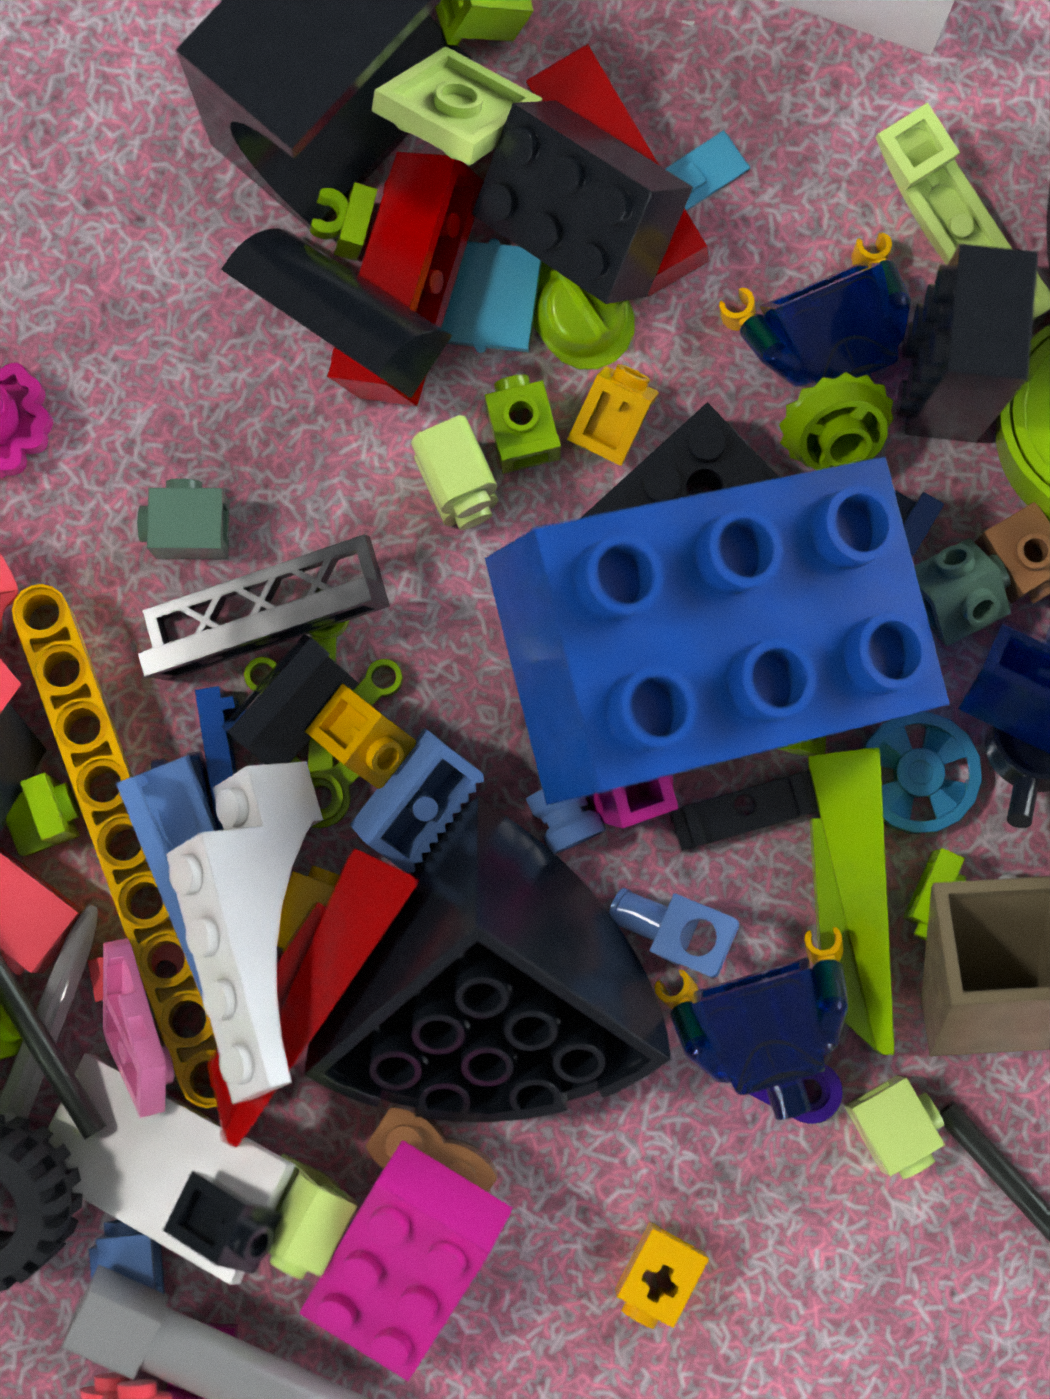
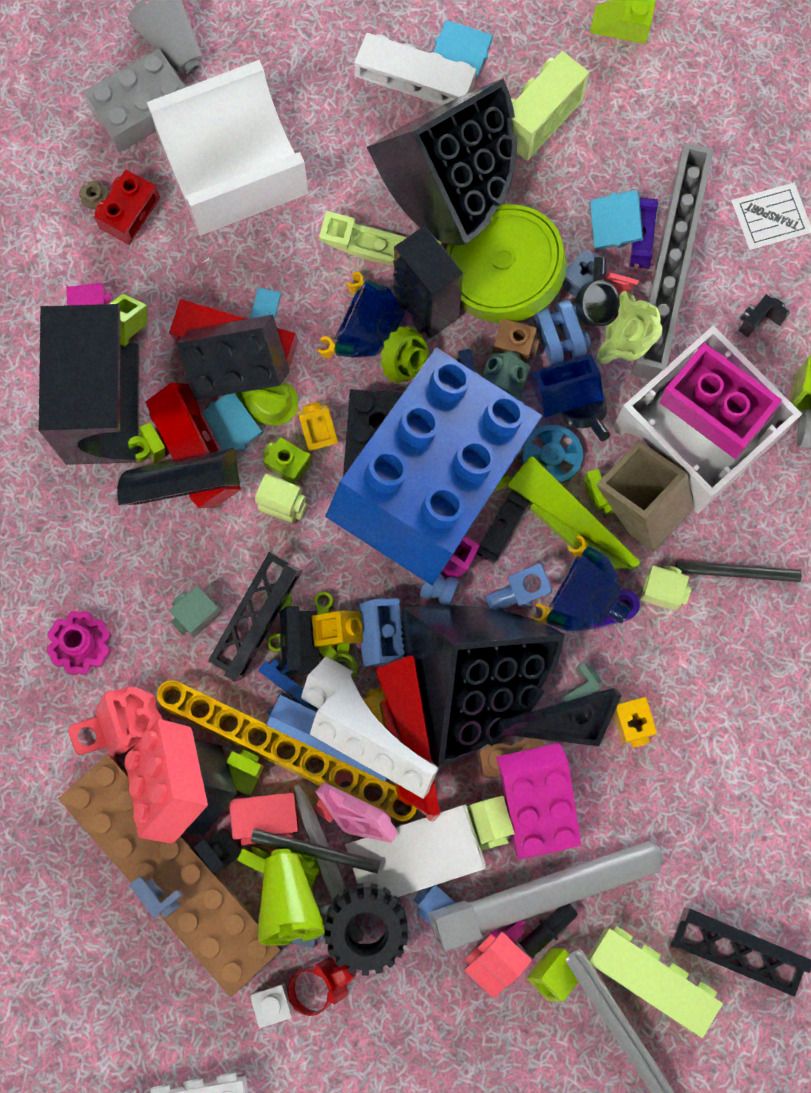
camera: 45 degrees left, 5 degrees down
(222, 1224) = (460, 848): black bracket -> none
(451, 104) = (151, 365): yellowish green plate -> none
(568, 1193) = (573, 721): none -> black wing
(615, 1166) = (590, 686): none -> sand green bracket

